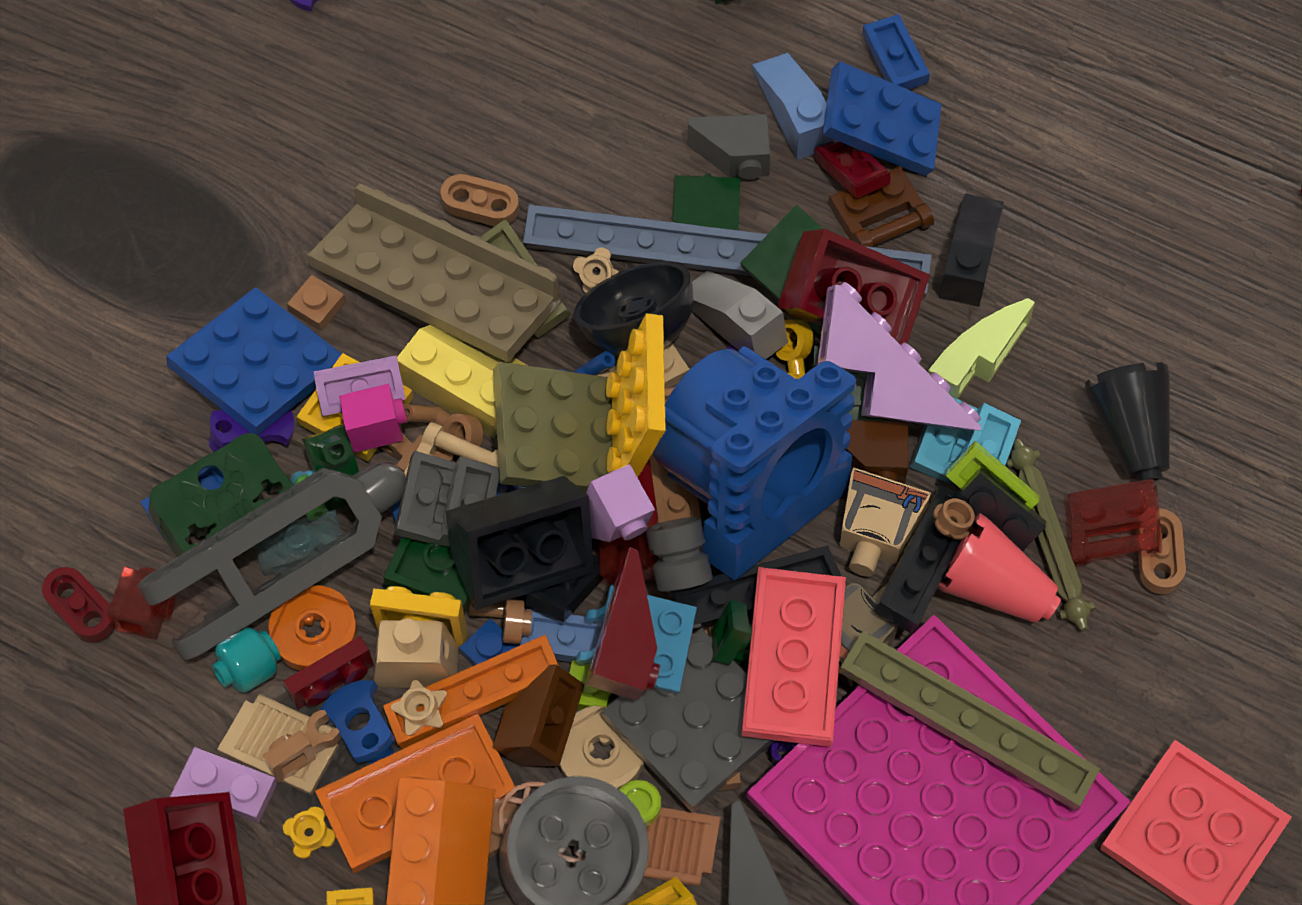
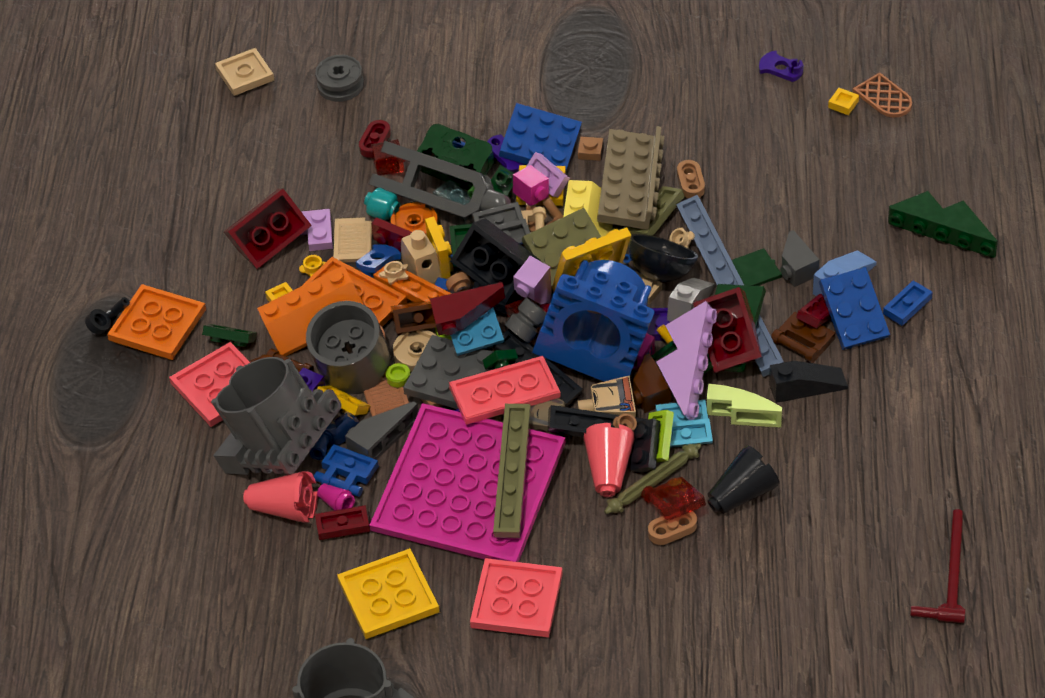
camera: 65 degrees right, 15 degrees down
(296, 751) = (345, 240): medium nougat plate -> none

